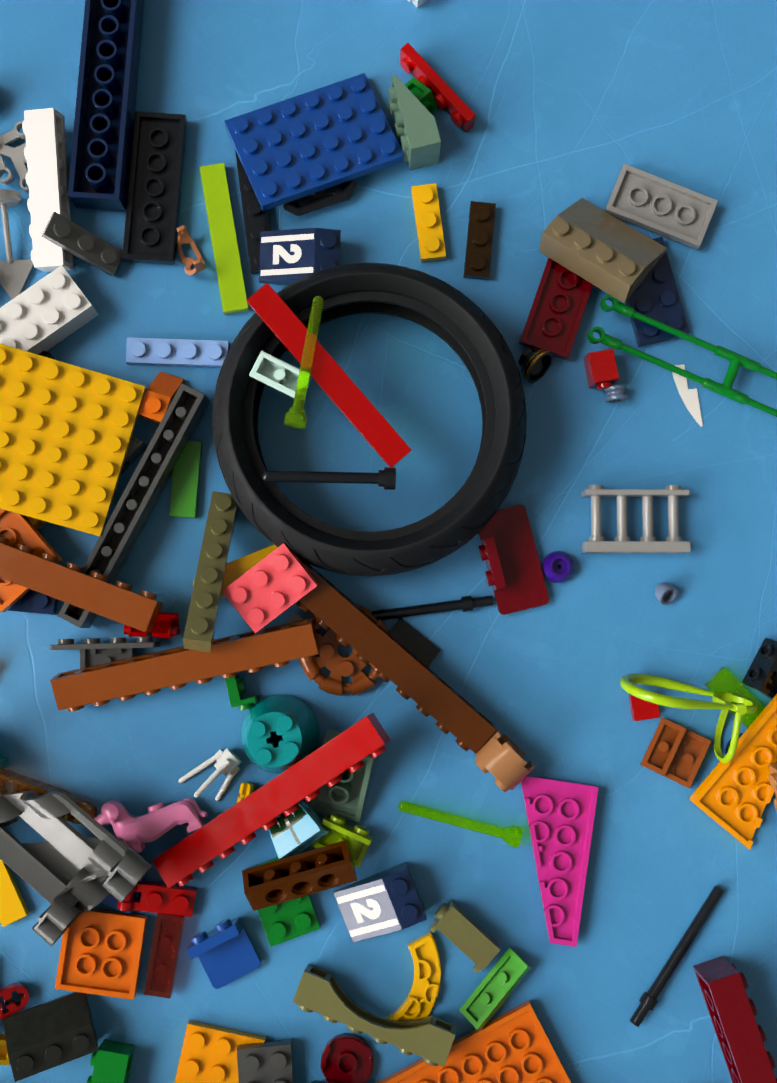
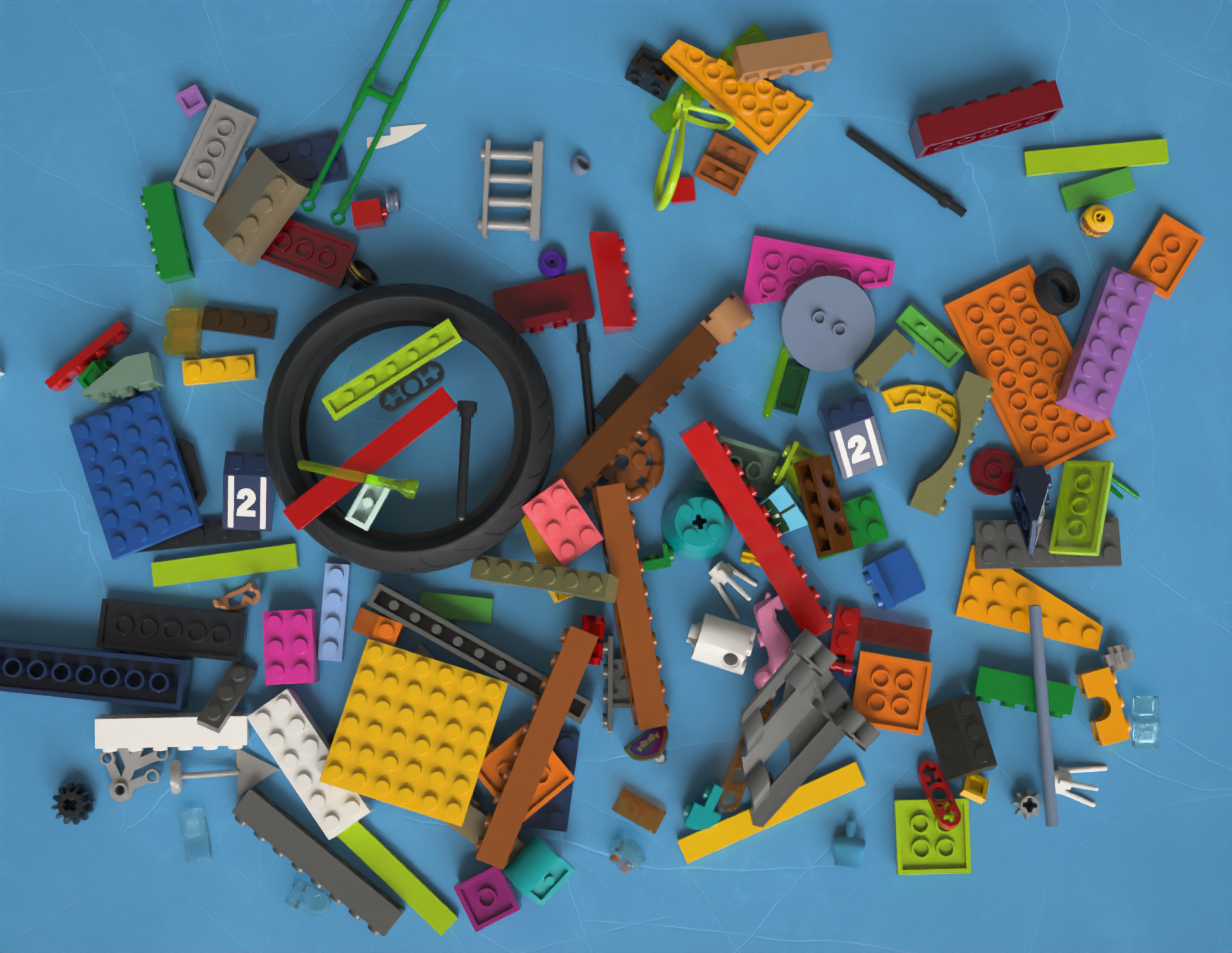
camera: 85 degrees left, 0 degrees up
(35, 689) = (649, 745): none -> shield
(138, 308) = (290, 646): none -> dark pink brick
(148, 765) = (721, 643): none -> white cylinder
(392, 405) = (412, 376): none -> black beam
(427, 395) = (391, 370): none -> lime plate
(430, 833) = (792, 389): none -> dark green tile
(465, 183) = (183, 332): none -> clear yellow brick
(503, 872) = (827, 323): none -> sand blue plate
(539, 631) = (611, 282): none -> red slope
(571, 161) = (168, 232): none -> green brick
(713, 179) = (191, 101): none -> medium lavender plate

